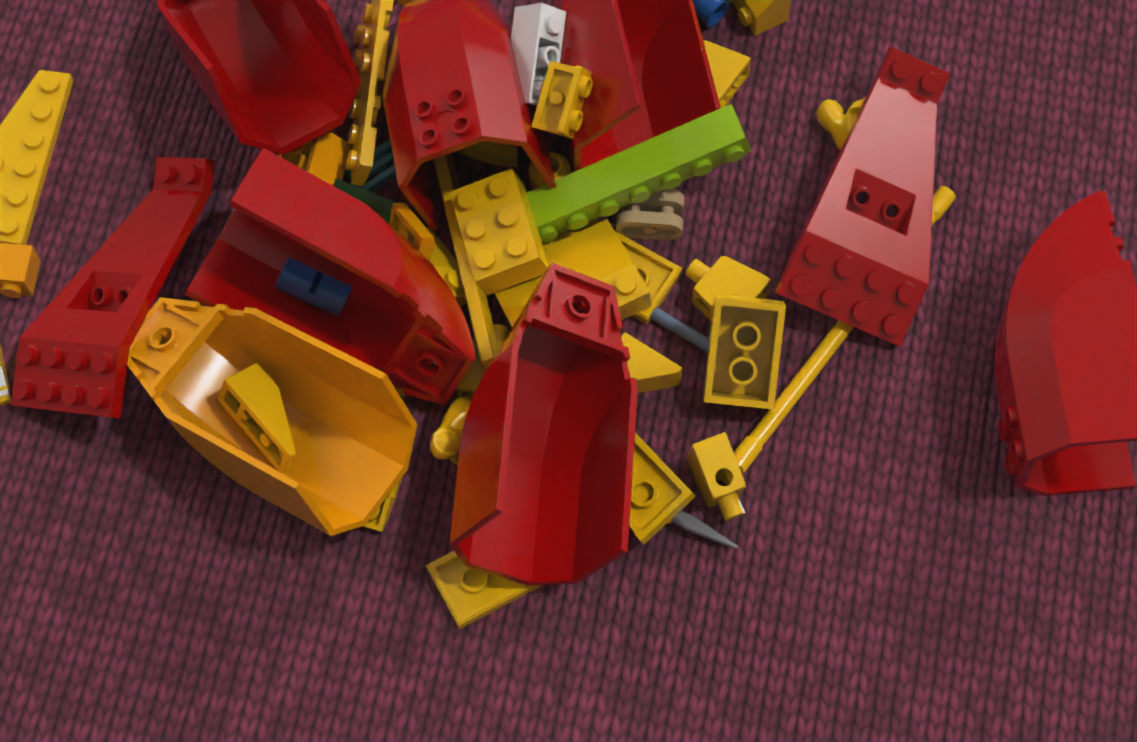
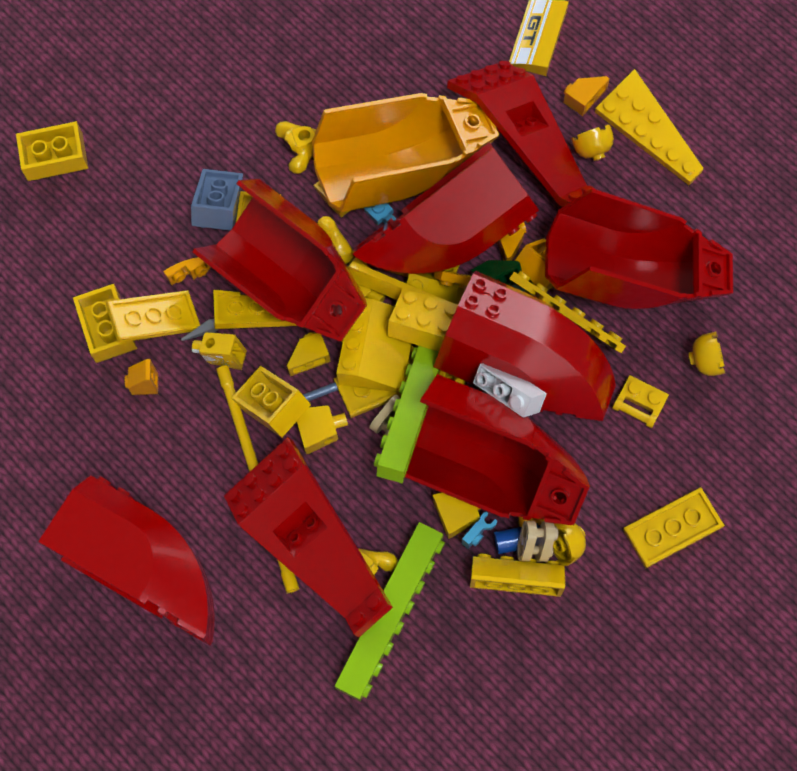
camera: 125 degrees right, 5 degrees up
(81, 209) = (594, 143): none -> yellow cylinder
(259, 410) = (408, 156): yellow slope -> none
(320, 587) = (300, 141): none -> yellow head
(493, 645) = (216, 200): none -> sand blue slope
(562, 99) = (465, 378): yellow bracket -> none
(622, 601) = (194, 267): none -> light orange slope
(725, 37) = (475, 535): none -> medium azure plate
(738, 592) = (152, 316): none -> yellow tile
(793, 655) = (97, 324): none -> yellow brick
(832, 546) = (142, 378): none -> light orange slope
(848, 76) = (400, 590): none -> lime brick

